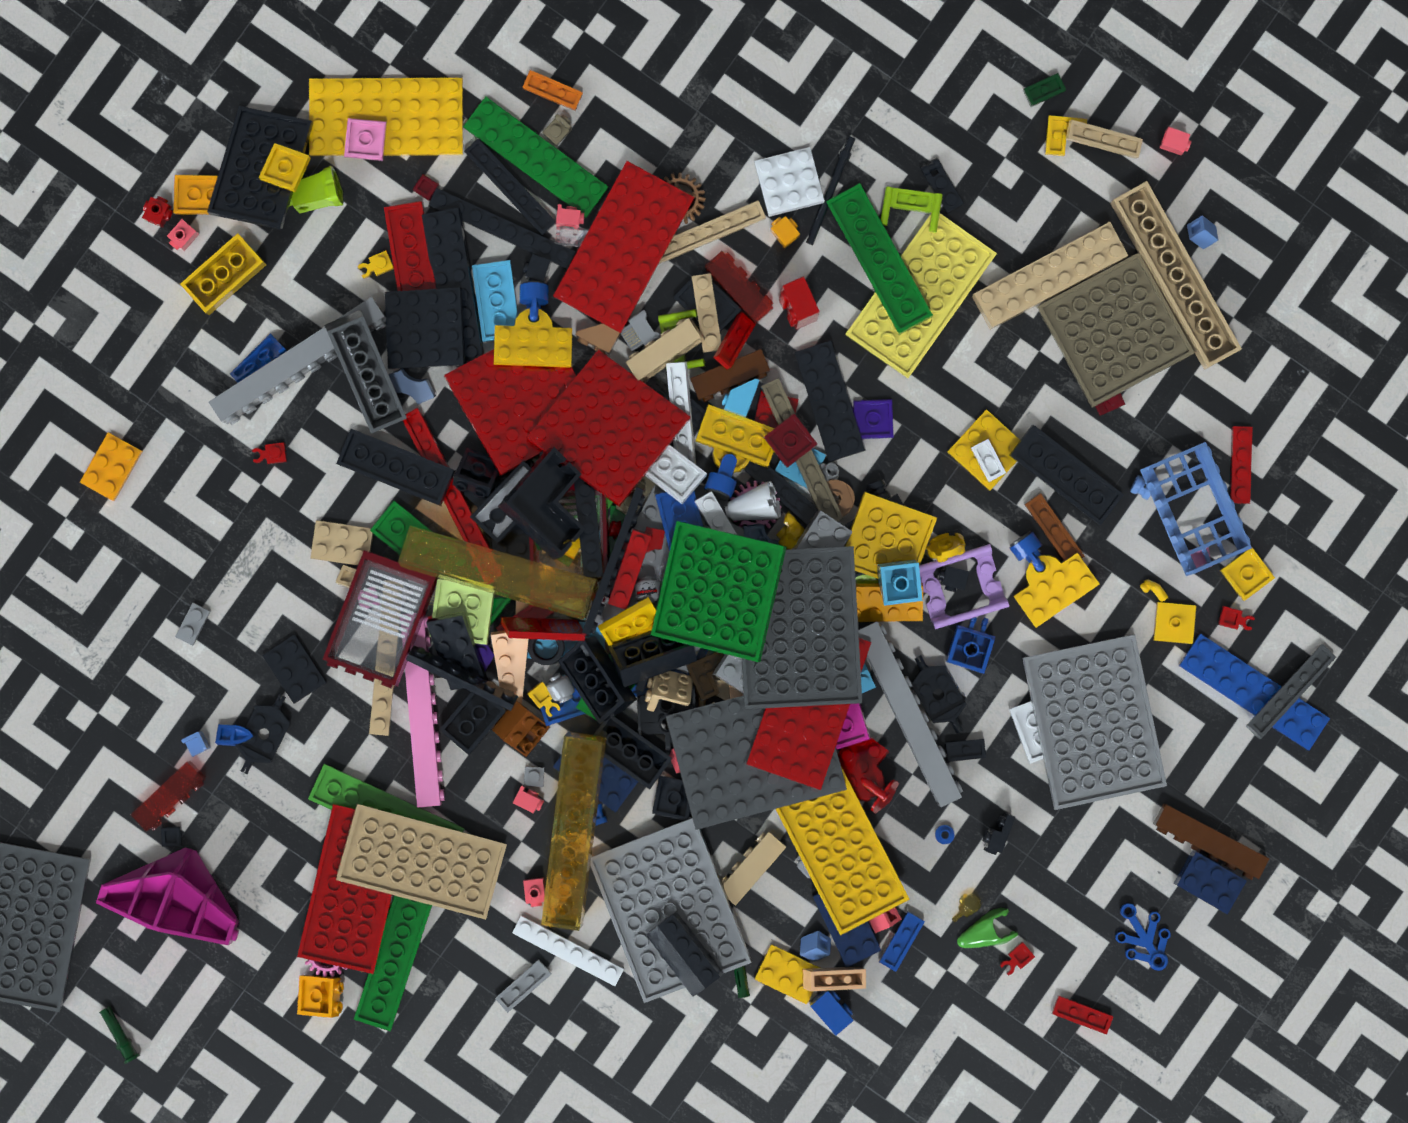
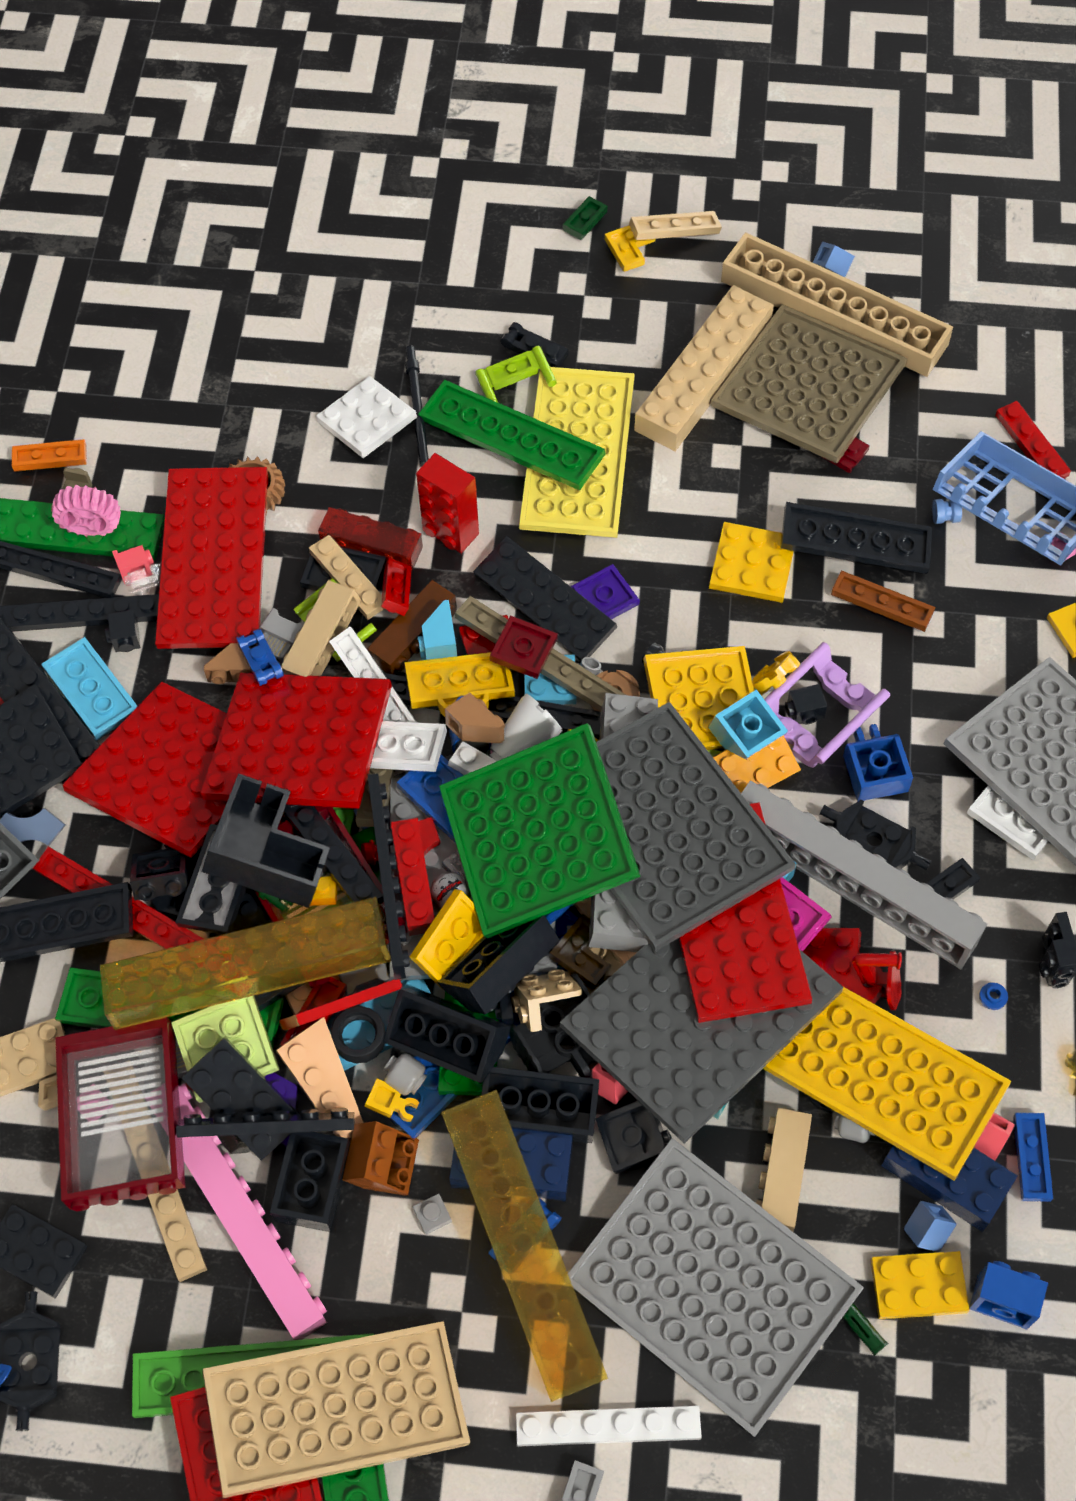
camera: 30 degrees left, 25 degrees down
(528, 800) = (440, 1247): coral brick -> none
(533, 337) = (151, 693): yellow plate -> none
(534, 891) = (516, 1366): coral brick -> none
(553, 167) = (86, 511): none -> bright pink gear
(615, 350) = (260, 658): none -> blue plate
(684, 954) = (768, 1329): black slope -> none
(714, 230) = (308, 500): tan plate -> none
(723, 485) = (473, 721): none -> medium nougat slope
(785, 230) = (390, 462): light orange brick -> none
(834, 978) = (983, 1247): light nougat brick -> none
(988, 460) = (761, 562): white plate -> none
(1050, 582) = (917, 652): yellow plate -> none
(1156, 588) = (1032, 601): yellow arm -> none
(1175, 141) = (748, 196): coral brick -> none

